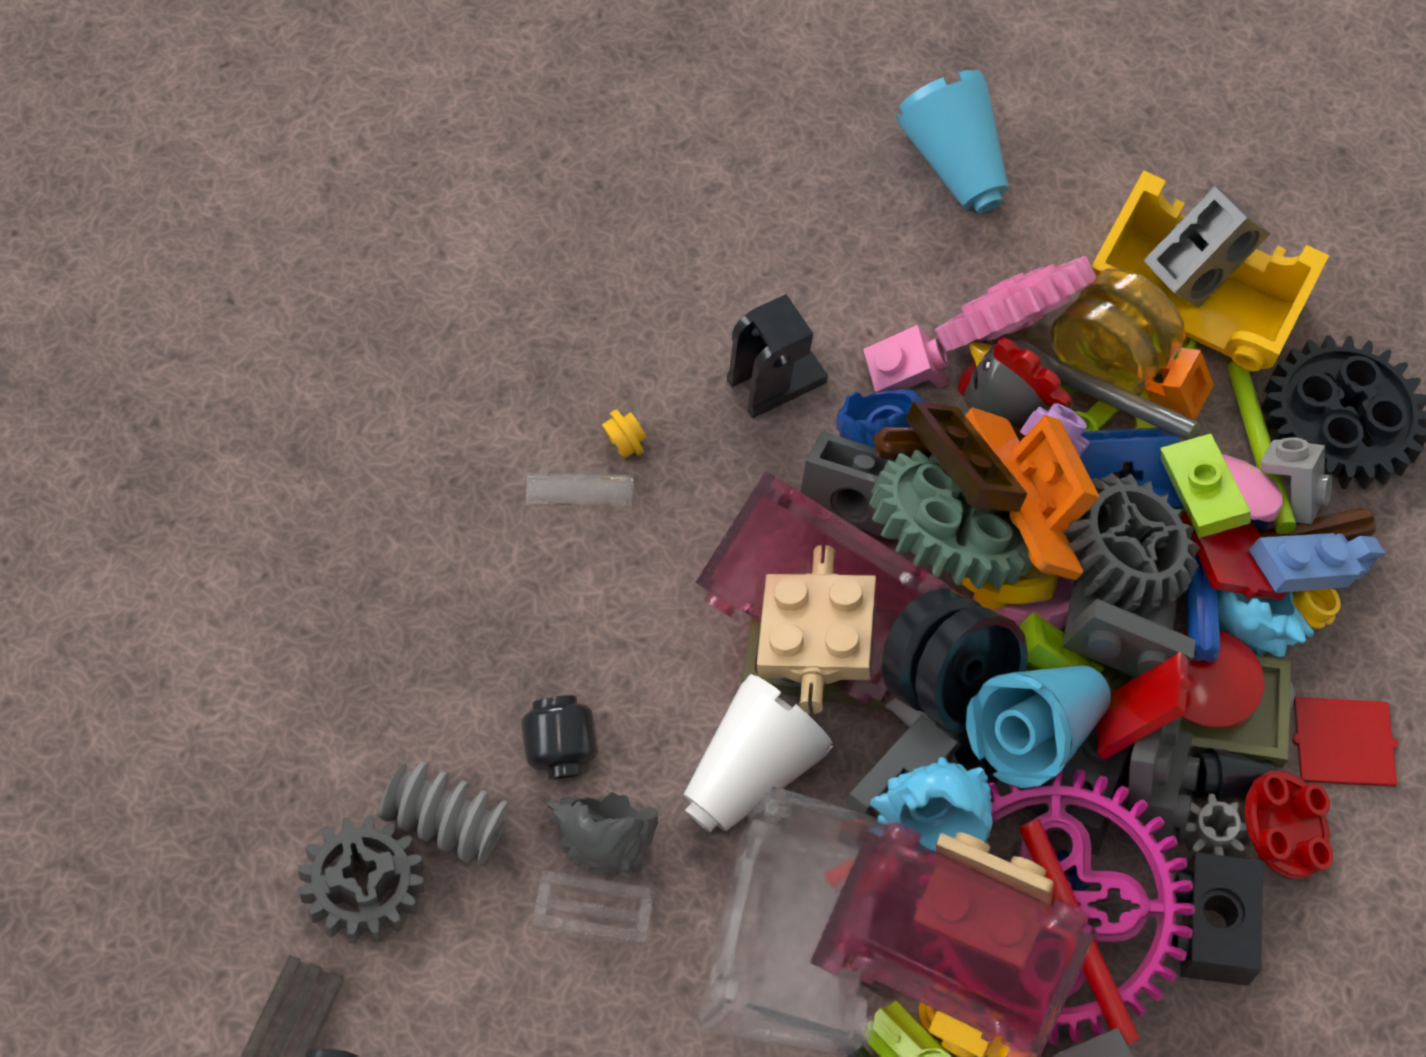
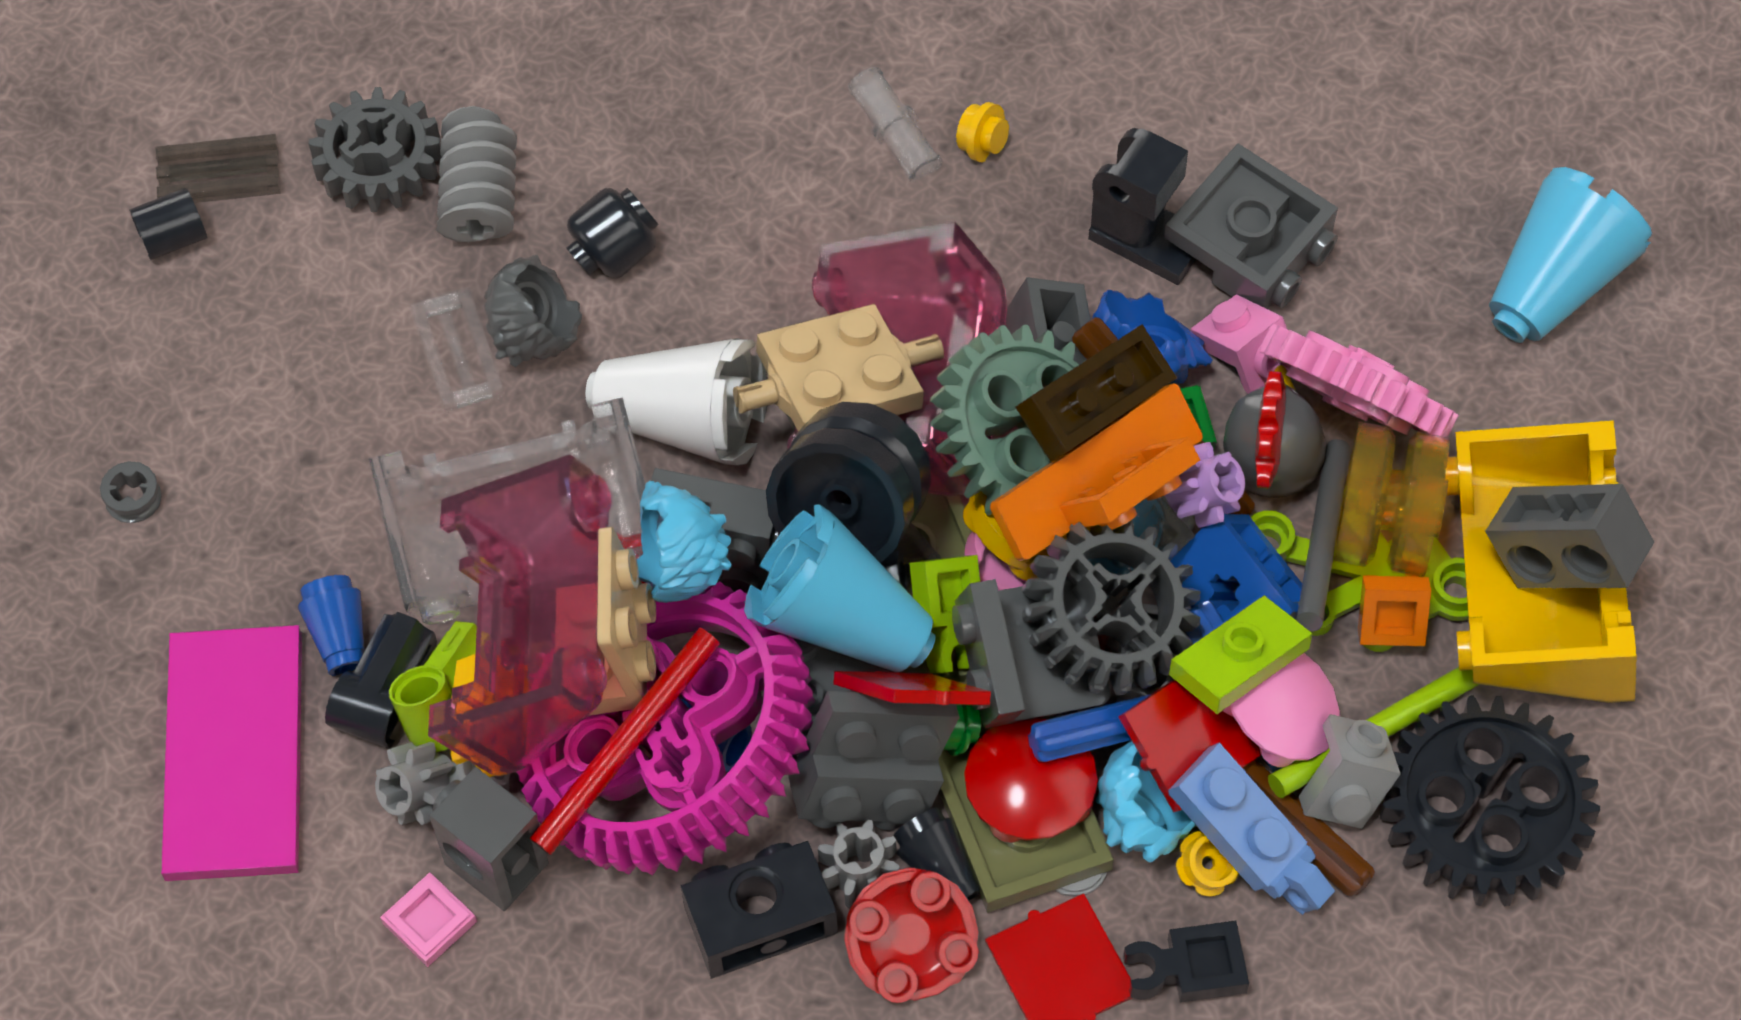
camera: 70 degrees right, 0 degrees up
(833, 299) = (1254, 228): none -> dark grey plate
(1390, 650) = (1199, 960): none -> black plate

